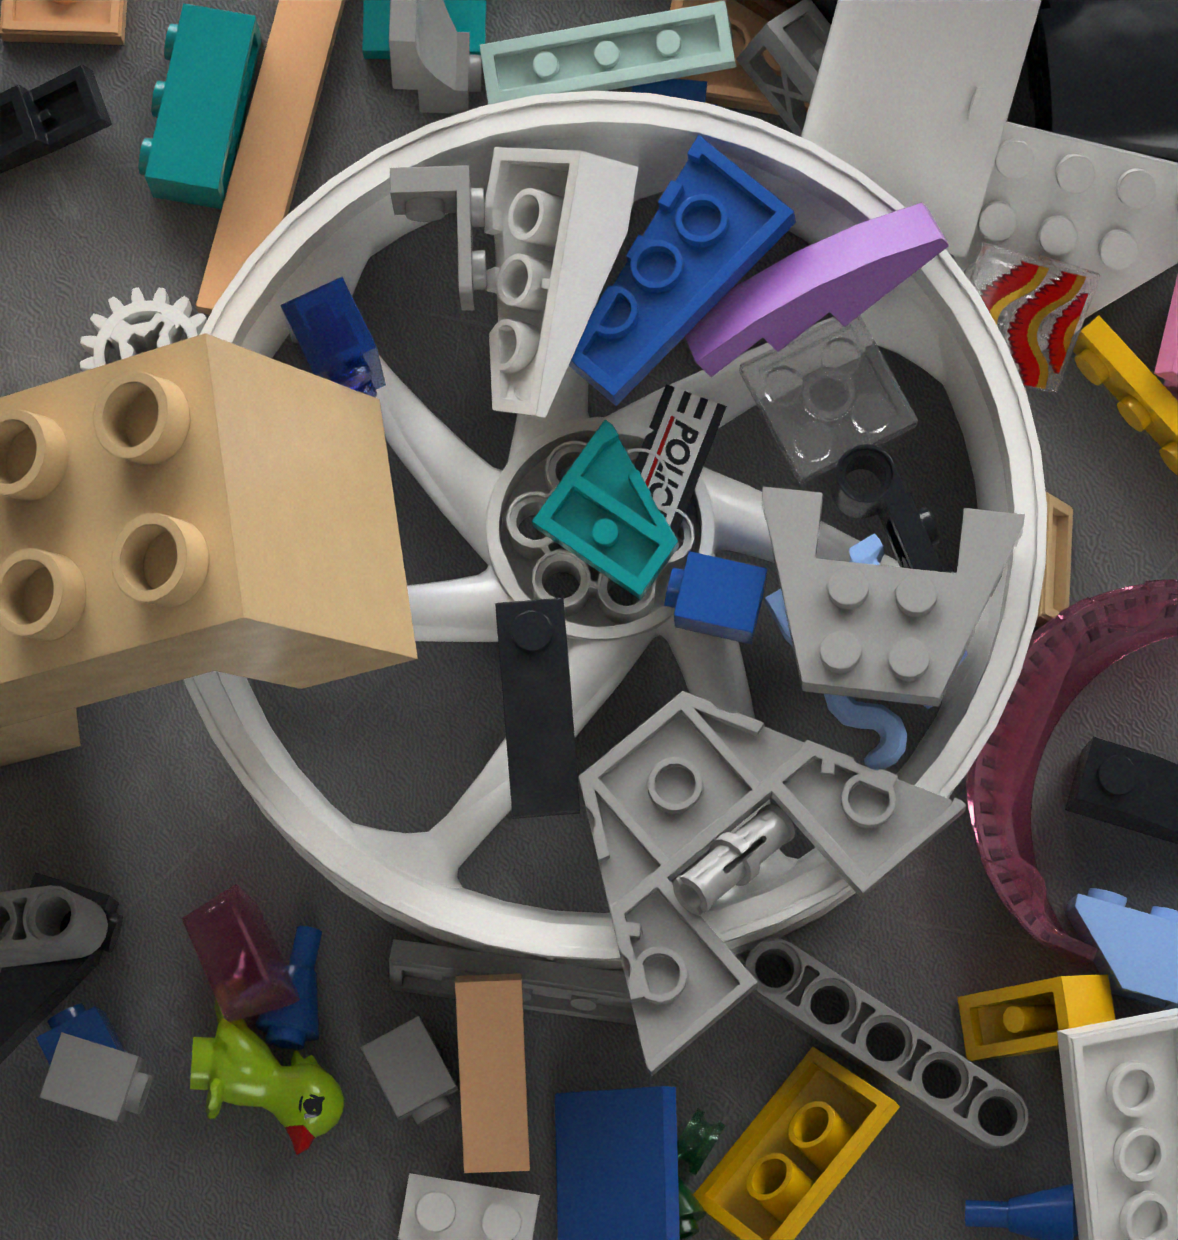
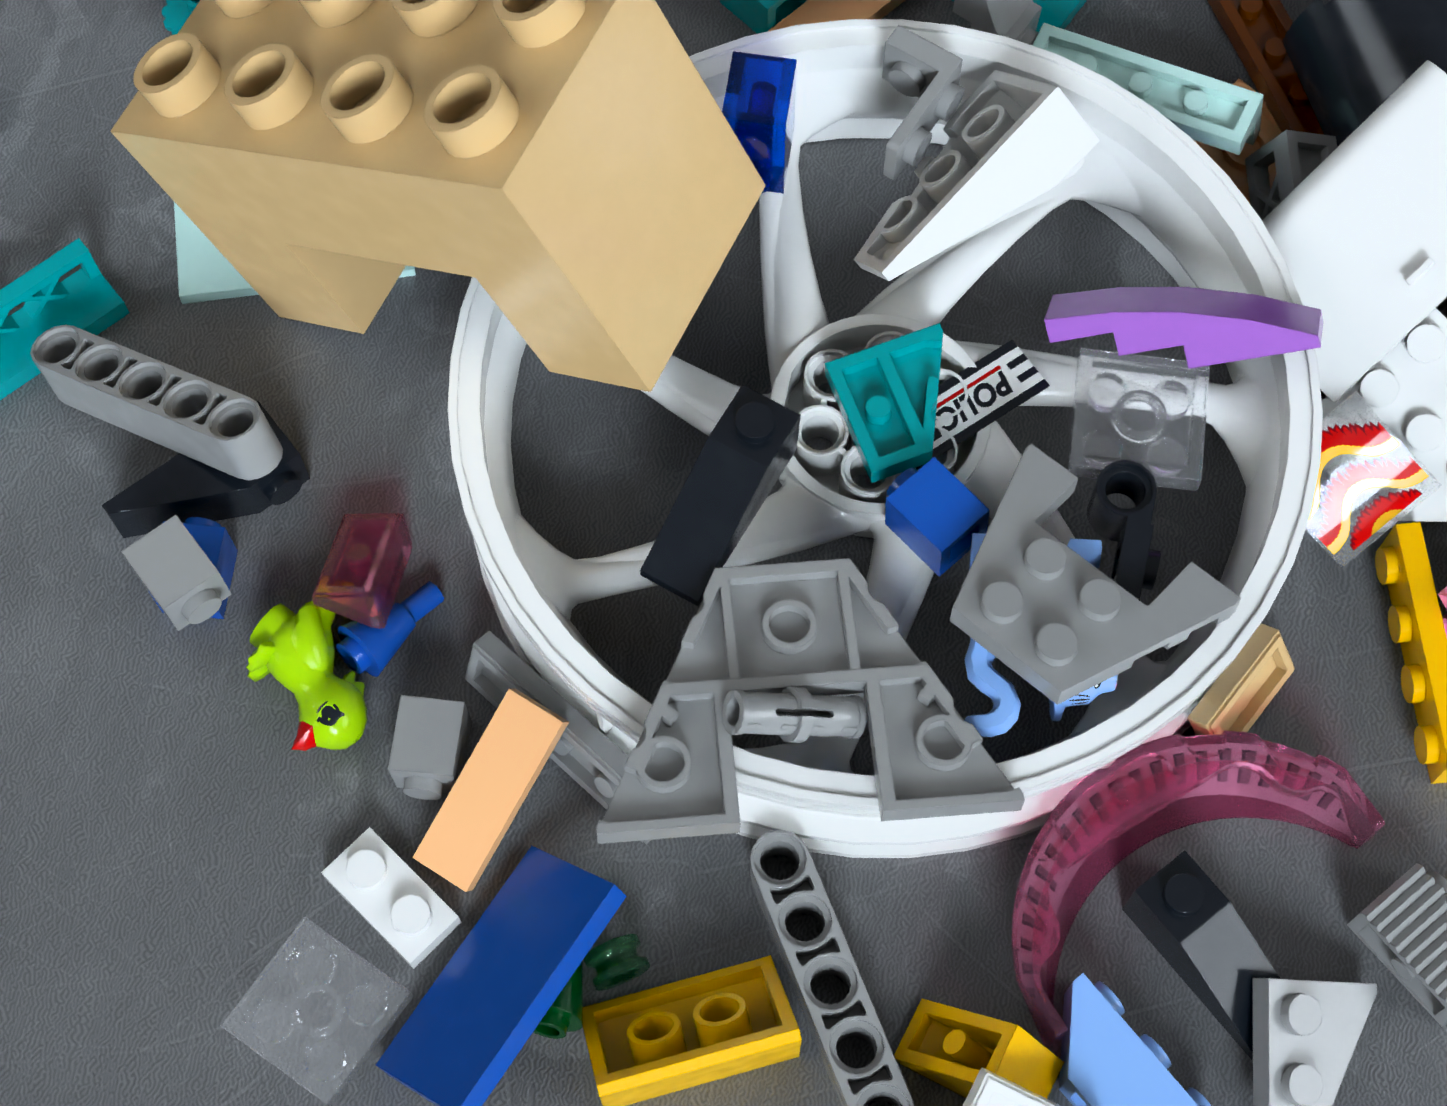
camera: 35 degrees right, 10 degrees down
(691, 255) = (1099, 240): blue wing -> none

